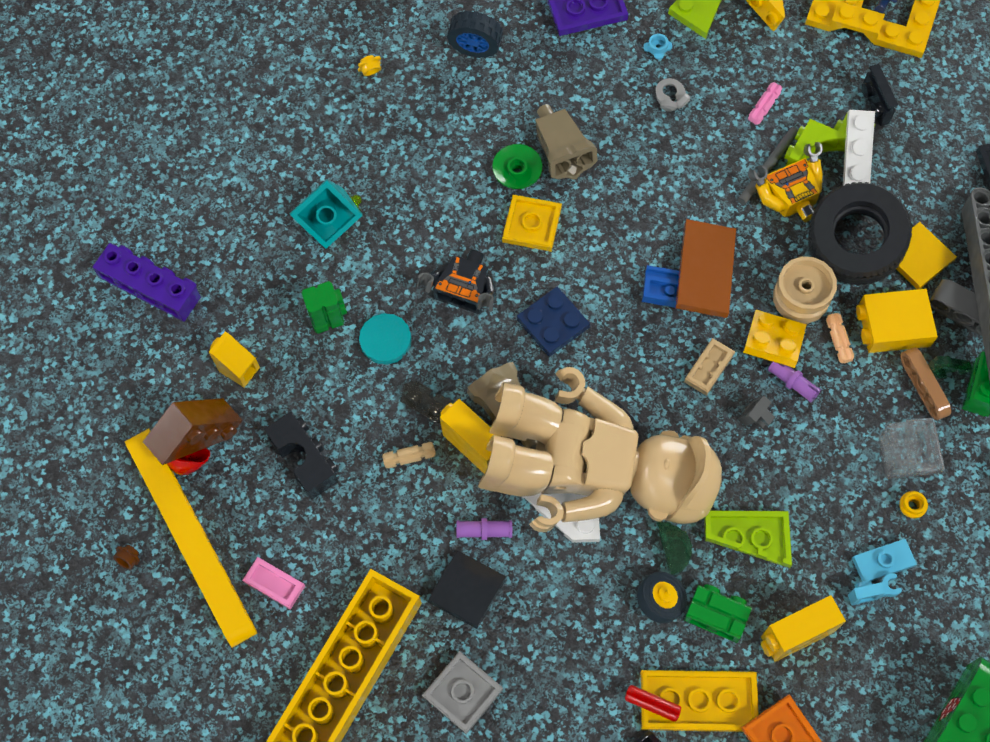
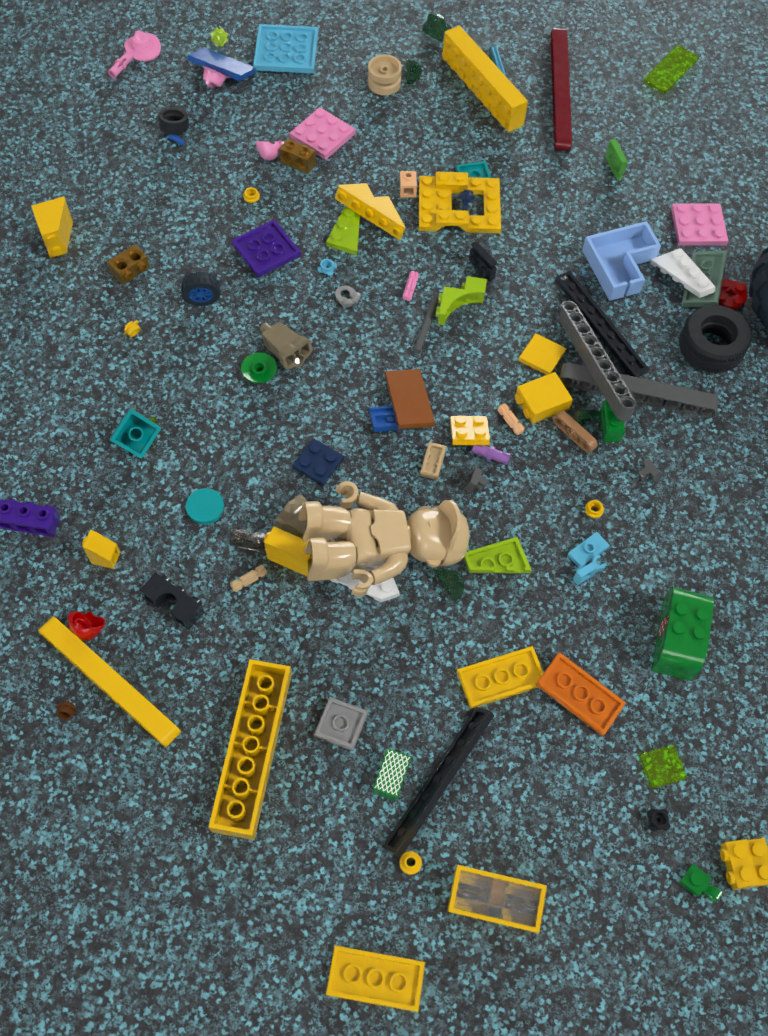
camera: 25 degrees left, 5 degrees down
(191, 427) = (86, 603): reddish brown wedge -> none
(273, 583) = (181, 694): bright pink tile -> none
(324, 306) = (155, 495): green brick -> none
(462, 283) = (247, 454): torso -> none
(467, 589) = (320, 654): black slope -> none
(484, 528) = (318, 611): medium lavender pin -> none
(532, 223) = (281, 402): yellow tile -> none
(653, 703) = (472, 687): red axle -> none
(661, 597) = (454, 617): black wheel -> none
(718, 613) = (494, 616): green brick -> none
(792, 187) = (447, 332): torso -> none
(802, 628) = (552, 607): yellow brick -> none
(804, 289) = (478, 394): tan wheel -> none
(858, 146) = (484, 305): white plate -> none
(869, 201) = (506, 327): black tyre -> none
(911, 448) = (580, 474): clear plate -> none

